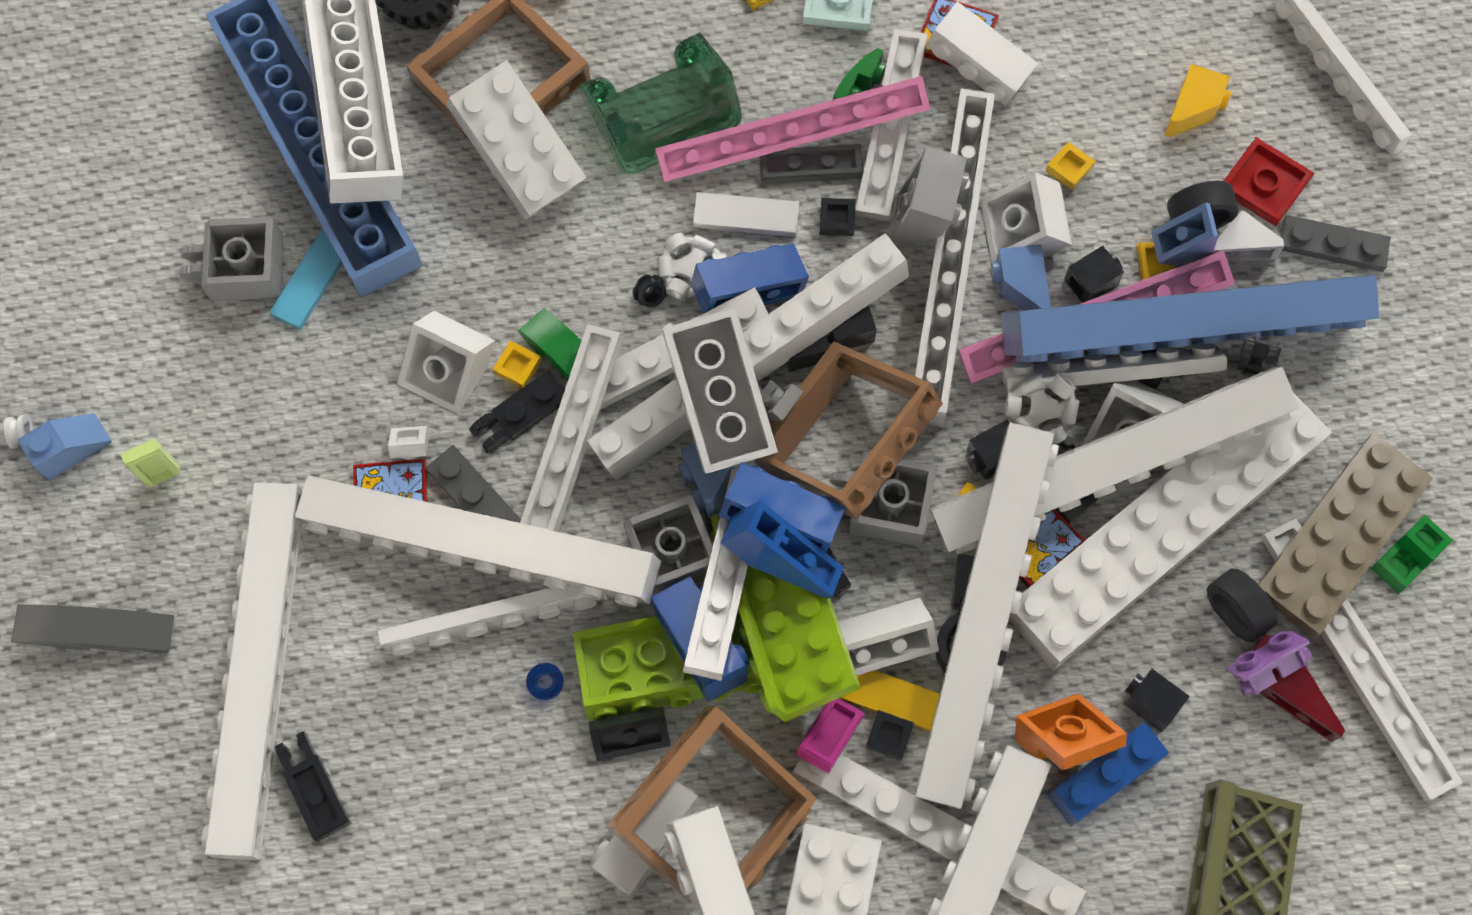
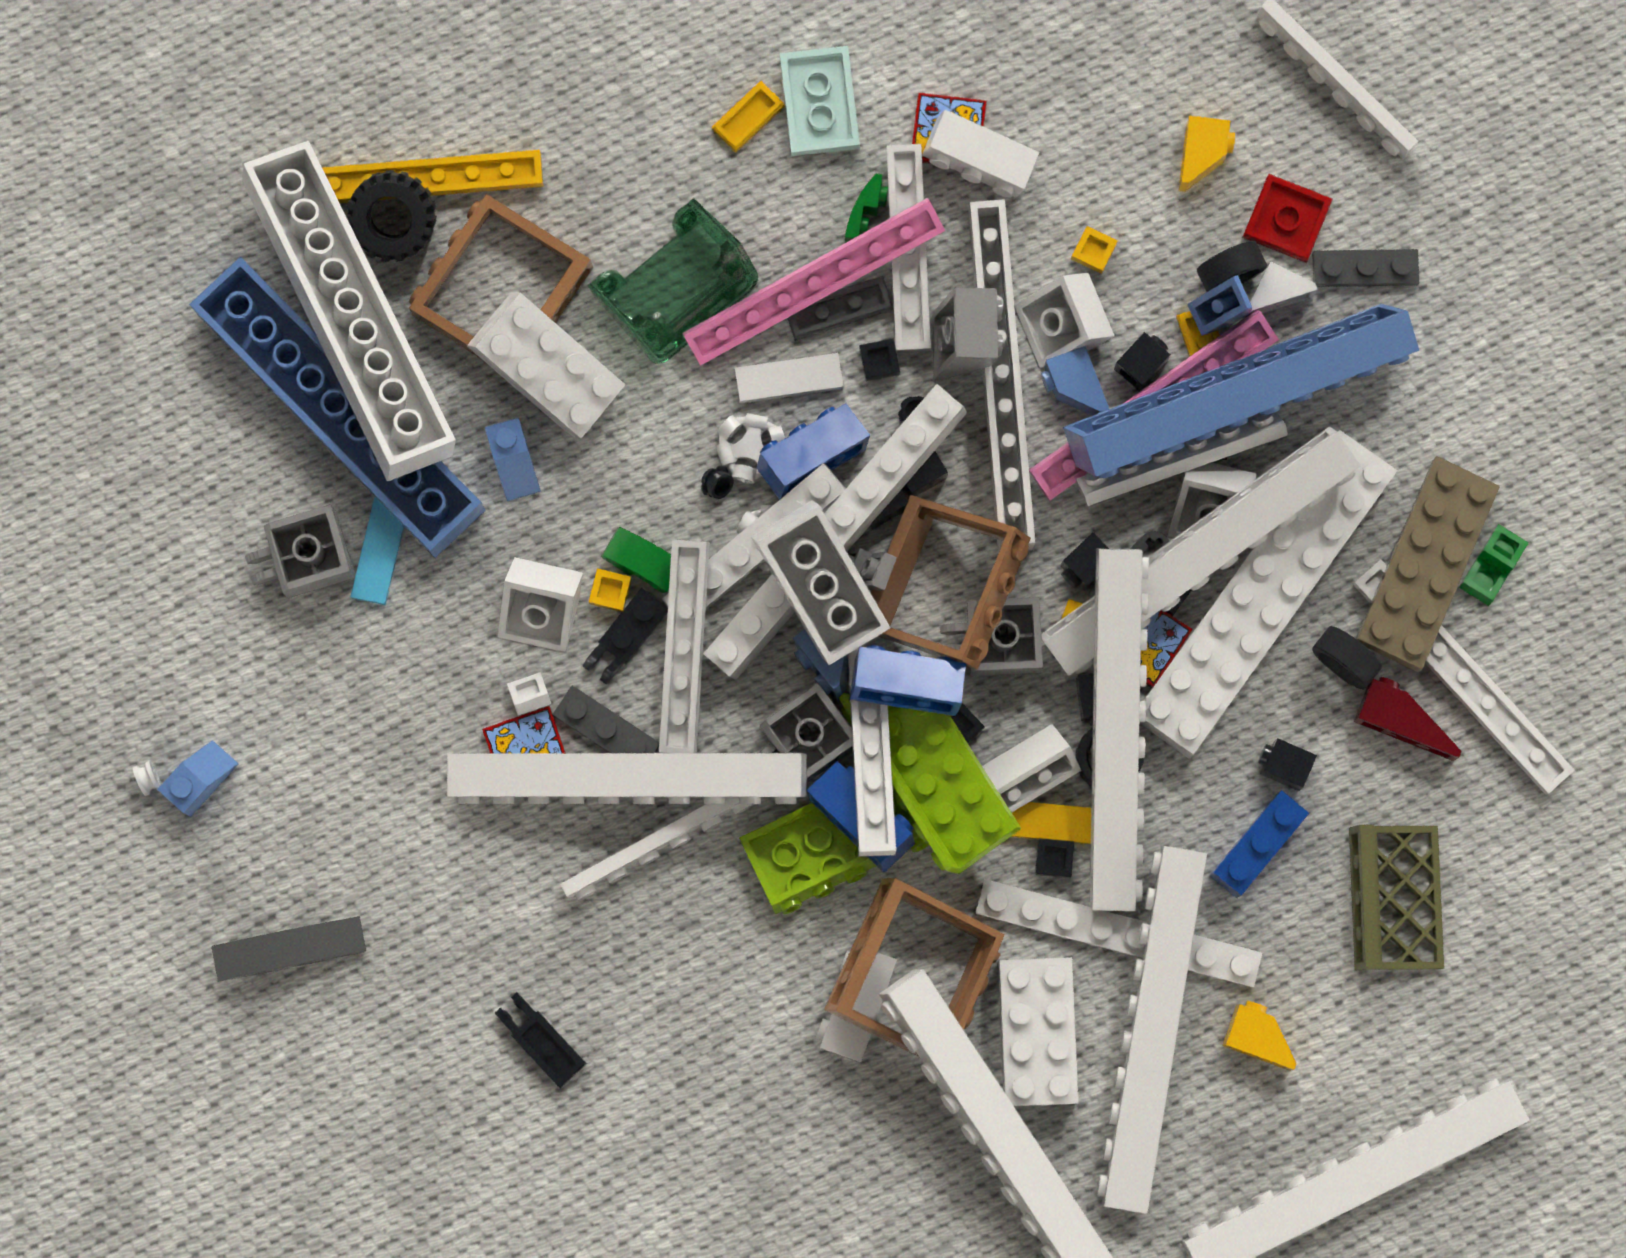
camera: 15 degrees left, 10 degrees up
(150, 462) = (293, 779): yellowish green tile -> none
(255, 674) = (454, 945): white brick -> none
(461, 222) = (512, 459): none -> medium blue slope
(539, 671) = (725, 877): clear blue plate -> none
(629, 733) = (818, 917): black plate -> none
(778, 548) = (917, 720): blue slope -> none
(830, 734) = (1001, 873): dark pink tile -> none
(1043, 406) = (1125, 512): white piece -> none
(1068, 732) = (1215, 817): orange plate -> none
(1257, 356) = (1315, 415): black hinge -> none
(1284, 652) = (1392, 695): medium lavender hinge -> none

